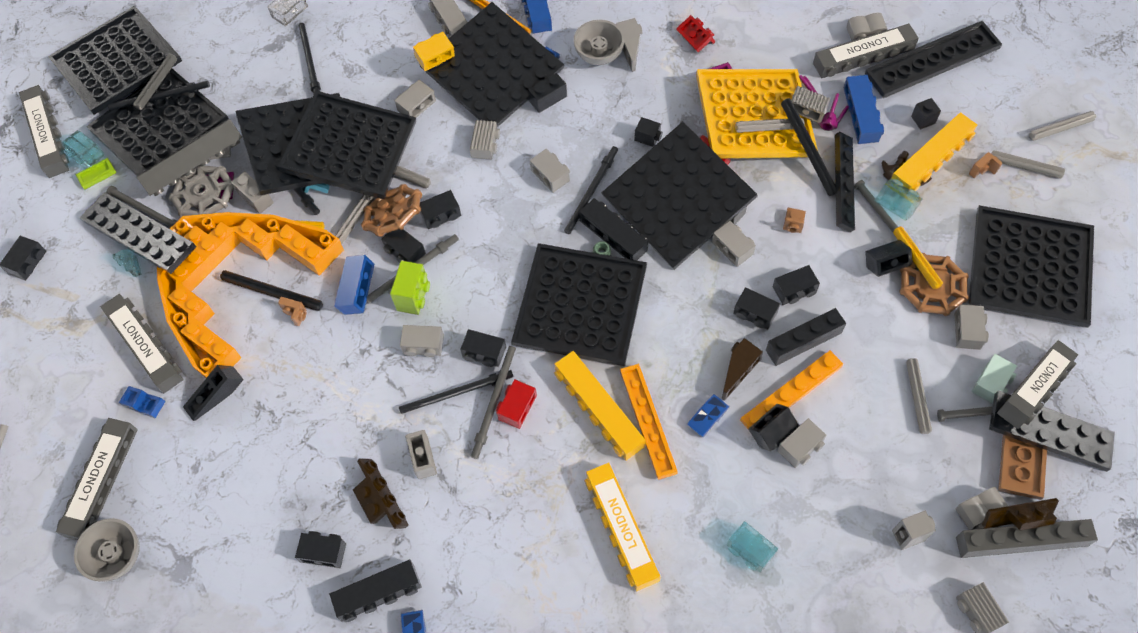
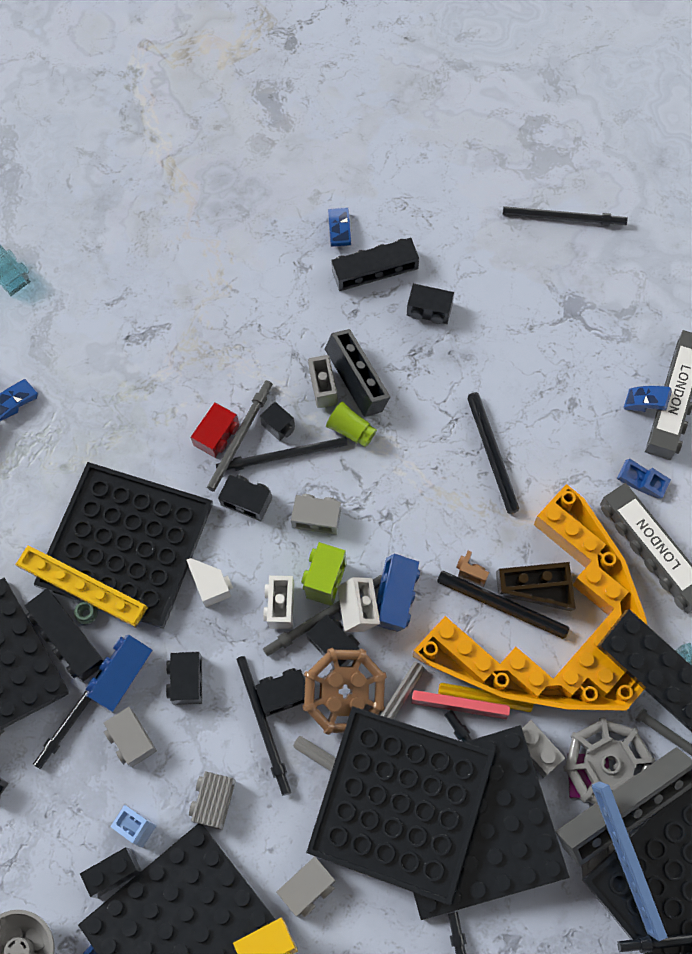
camera: 175 degrees left, 5 degrees up
(106, 550) = (648, 311): light grey piece -> none
(124, 468) = (648, 397): none -> blue slope
(193, 117) = (629, 861): none -> medium blue tile
(213, 390) = (553, 479): black slope -> none
(240, 302) = (538, 584): none -> dark brown wedge
(270, 413) = (493, 453): none -> black axle
(328, 216) = (460, 704): none -> coral tile
(376, 497) = (374, 345): dark brown bracket -> none
(381, 265) = (358, 604): none -> white brick
(390, 466) = (357, 373): none -> black brick
(395, 419) = (351, 425): none -> lime plant
(441, 166) = (278, 769): none -> black bar
(445, 266) = (280, 602): none -> white brick
(461, 417) = (277, 421): none -> black brick
(505, 279) = (210, 582): none -> white slope
(514, 211) = (185, 678): none -> black brick
(537, 119) = (133, 826): none -> light blue slope
(564, 207) = (118, 672): none -> blue brick
(599, 405) = (126, 420): yellow brick -> none
(607, 262) = (81, 586): none -> yellow tile
(622, 526) = (126, 300): brick -> none
(648, 422) = (77, 401): light orange plate -> none

